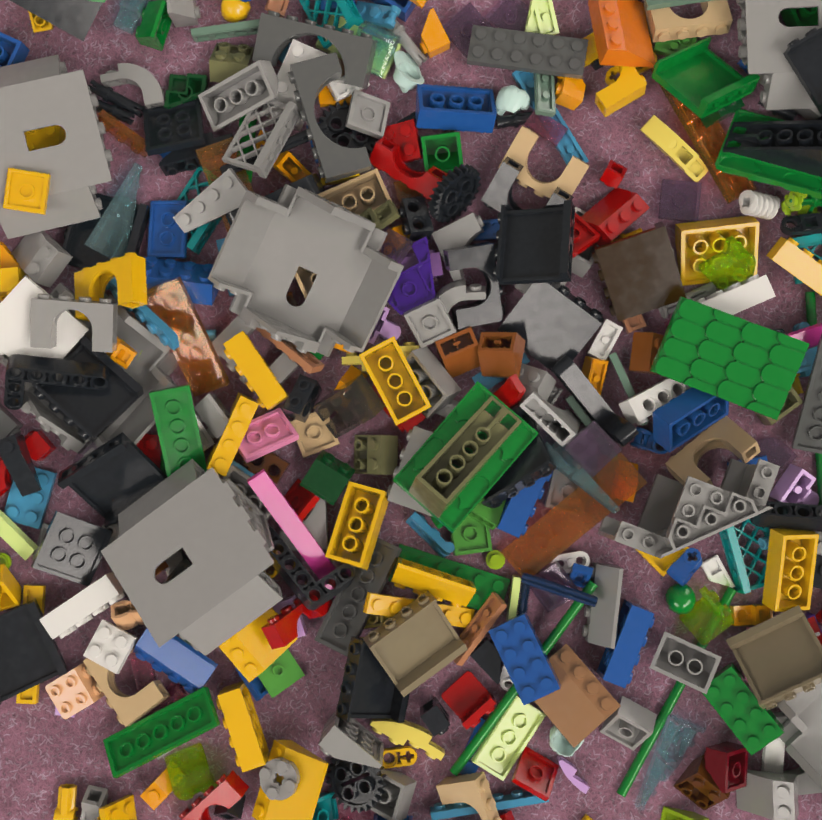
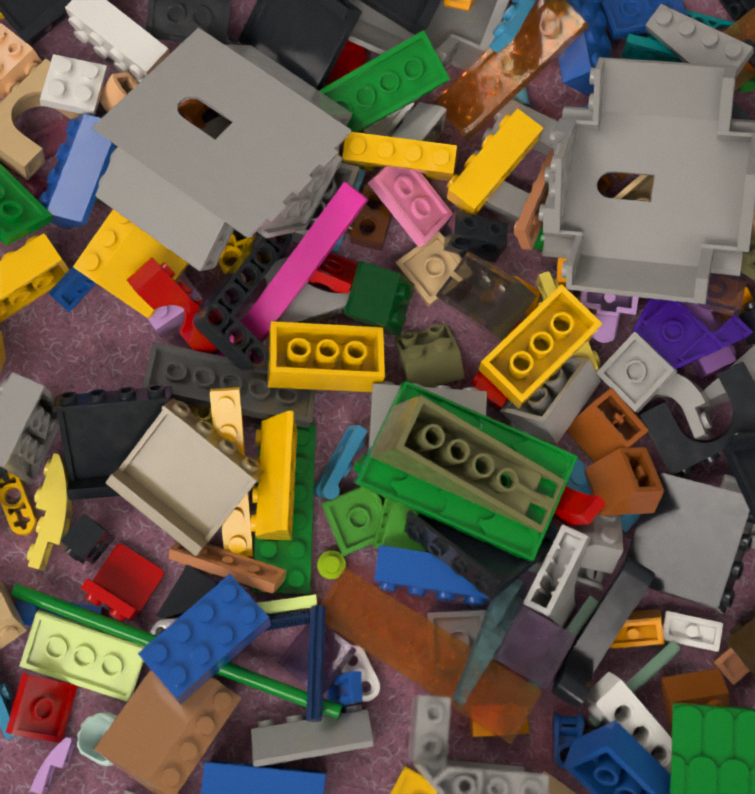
camera: 75 degrees right, 10 degrees down
(281, 674) = (96, 313): bright green plate -> none

